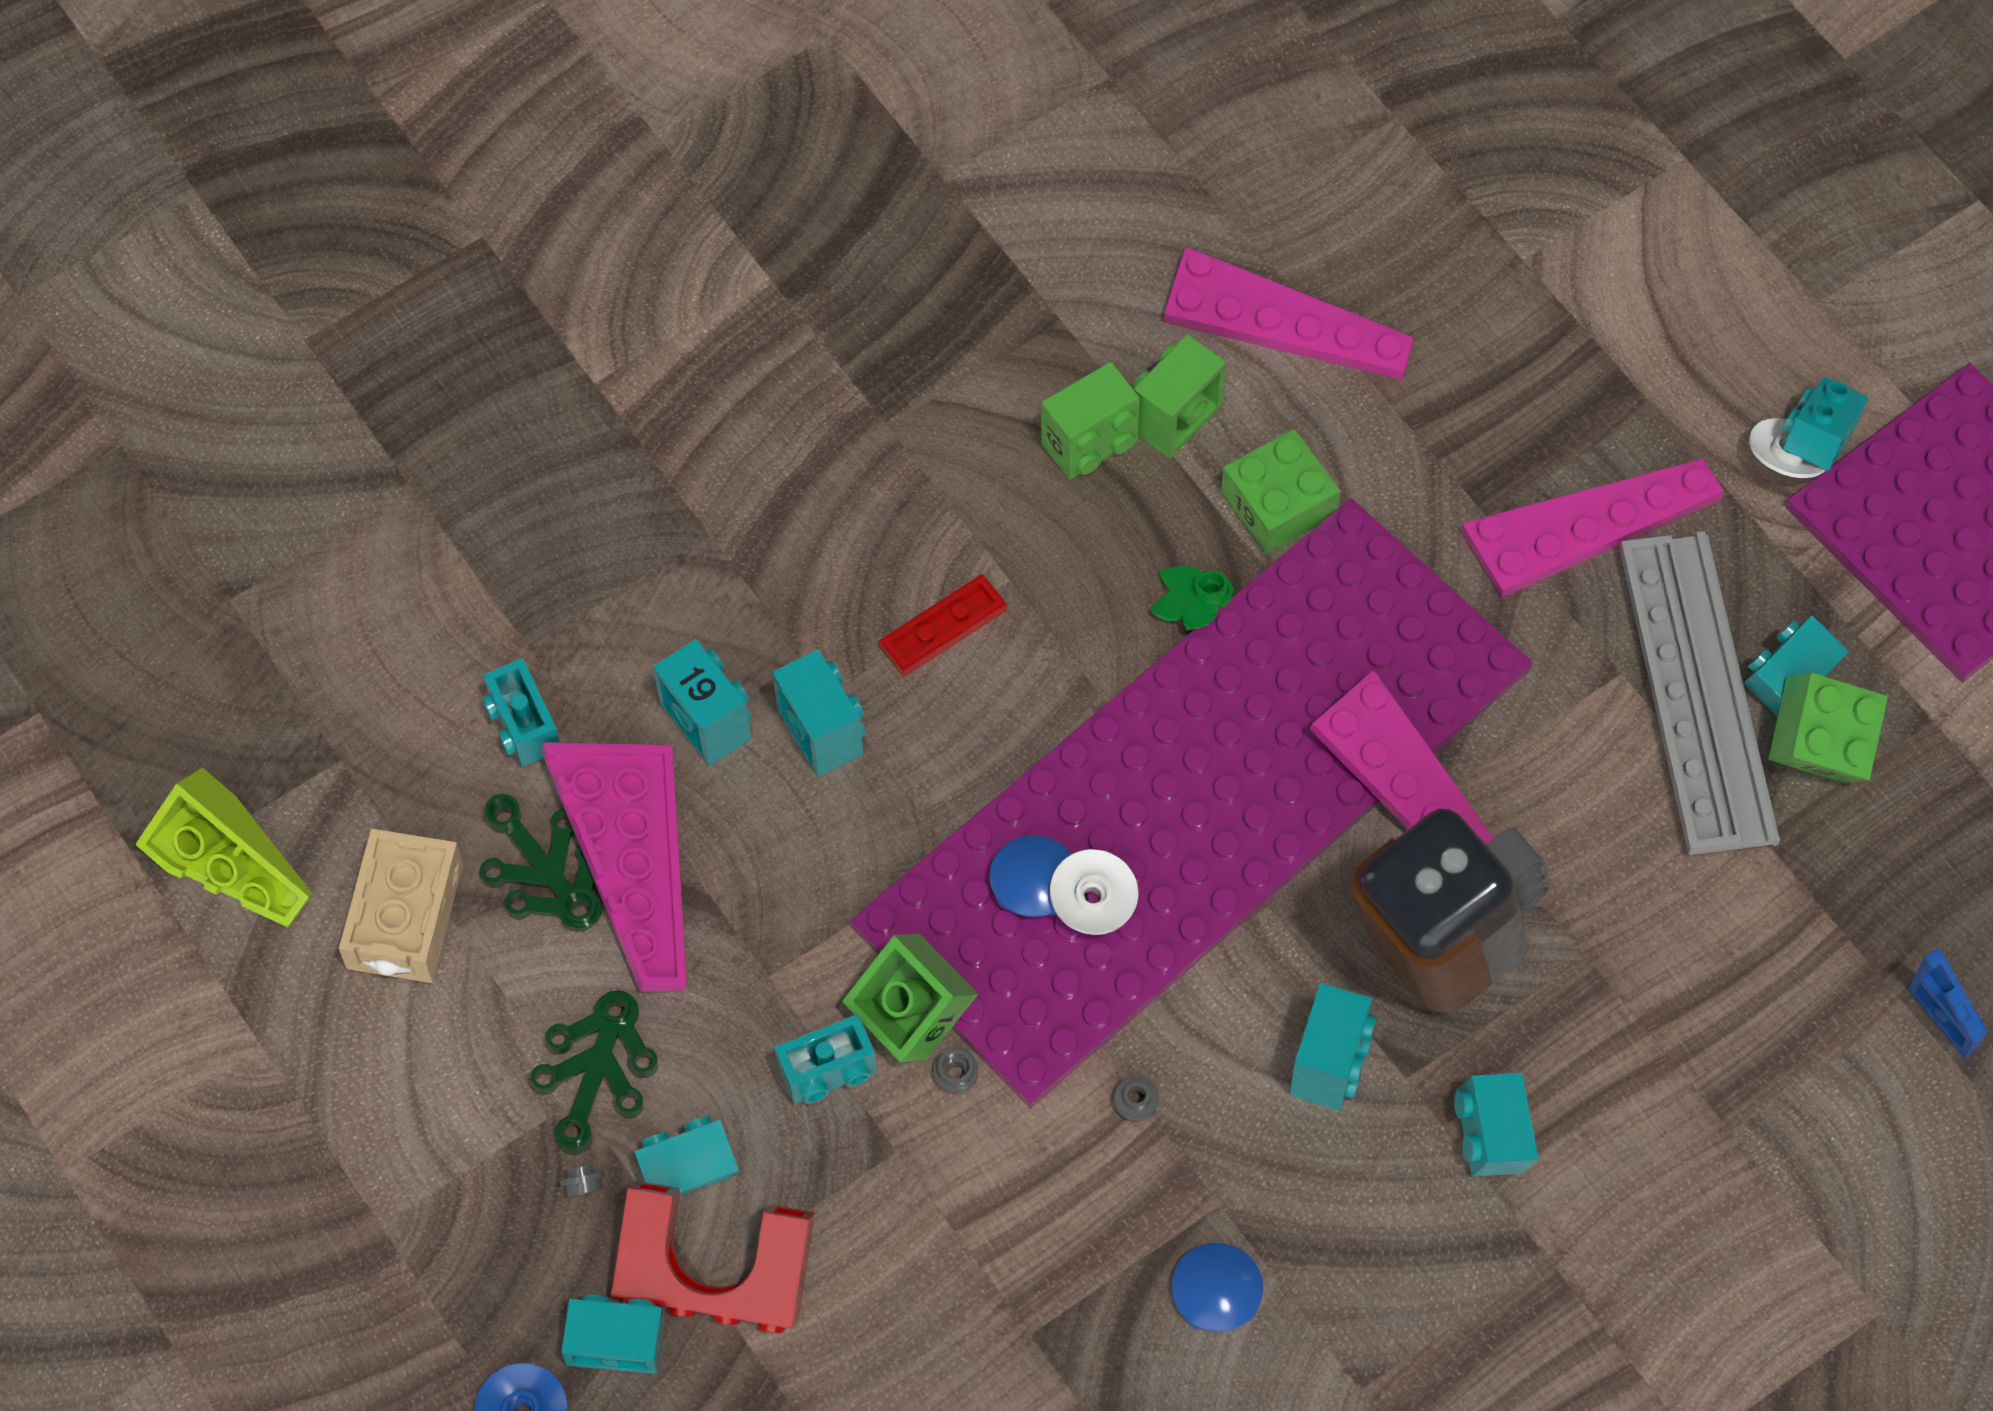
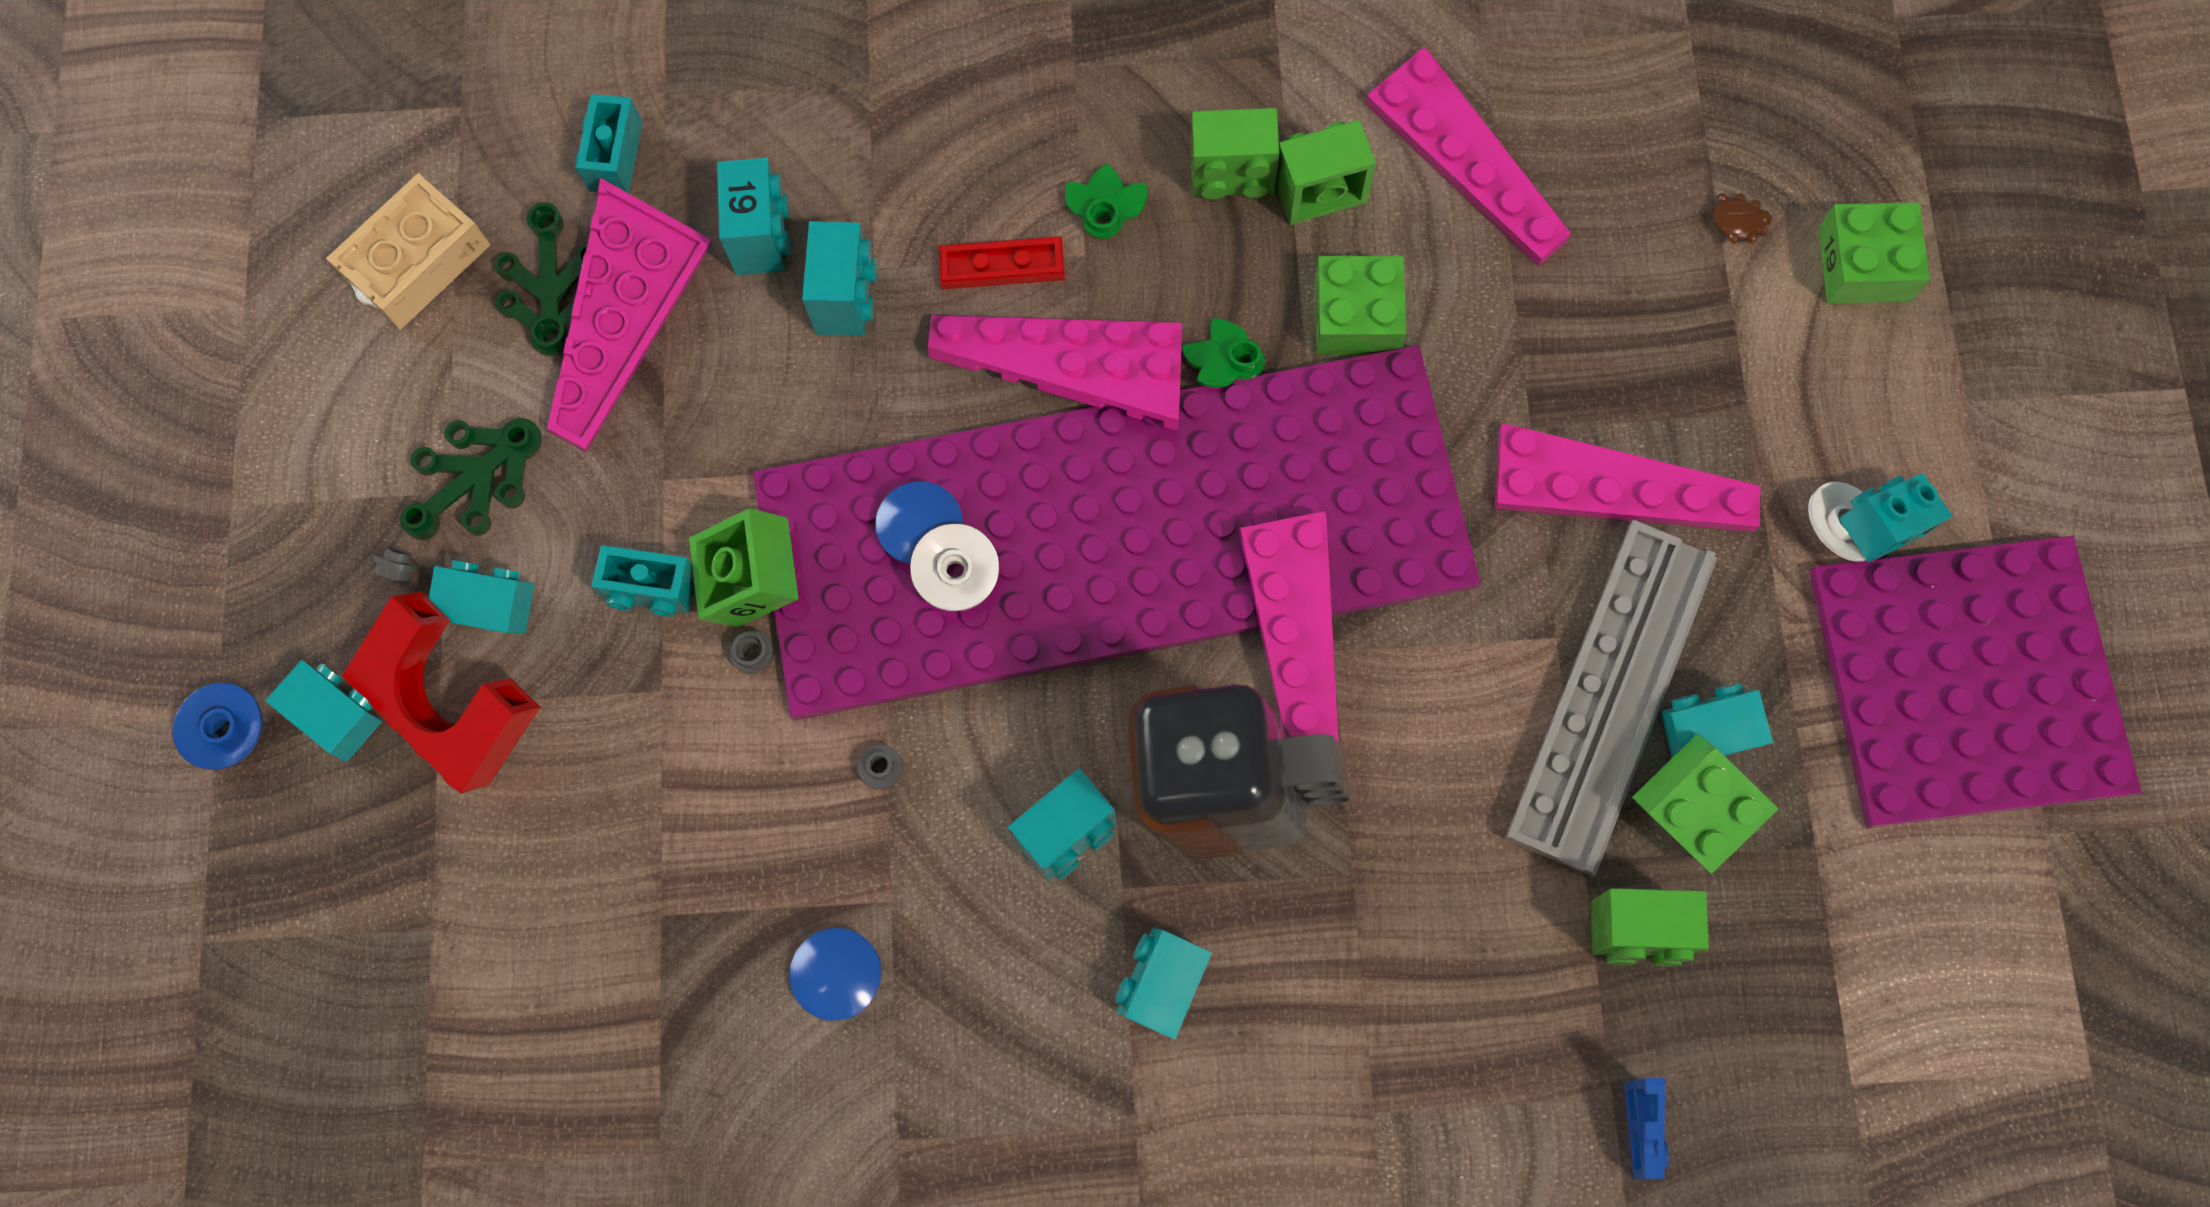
camera: 35 degrees right, 10 degrees up
(216, 841) = (311, 106): lime wedge -> none
(996, 521) = (1105, 198): none -> green plate
(1070, 667) = (1081, 360): none -> dark pink wing
(1542, 250) = (1740, 218): none -> reddish brown piece
(1669, 222) = (1873, 253): none -> bright green brick
(1847, 848) = (1649, 924): none -> bright green brick

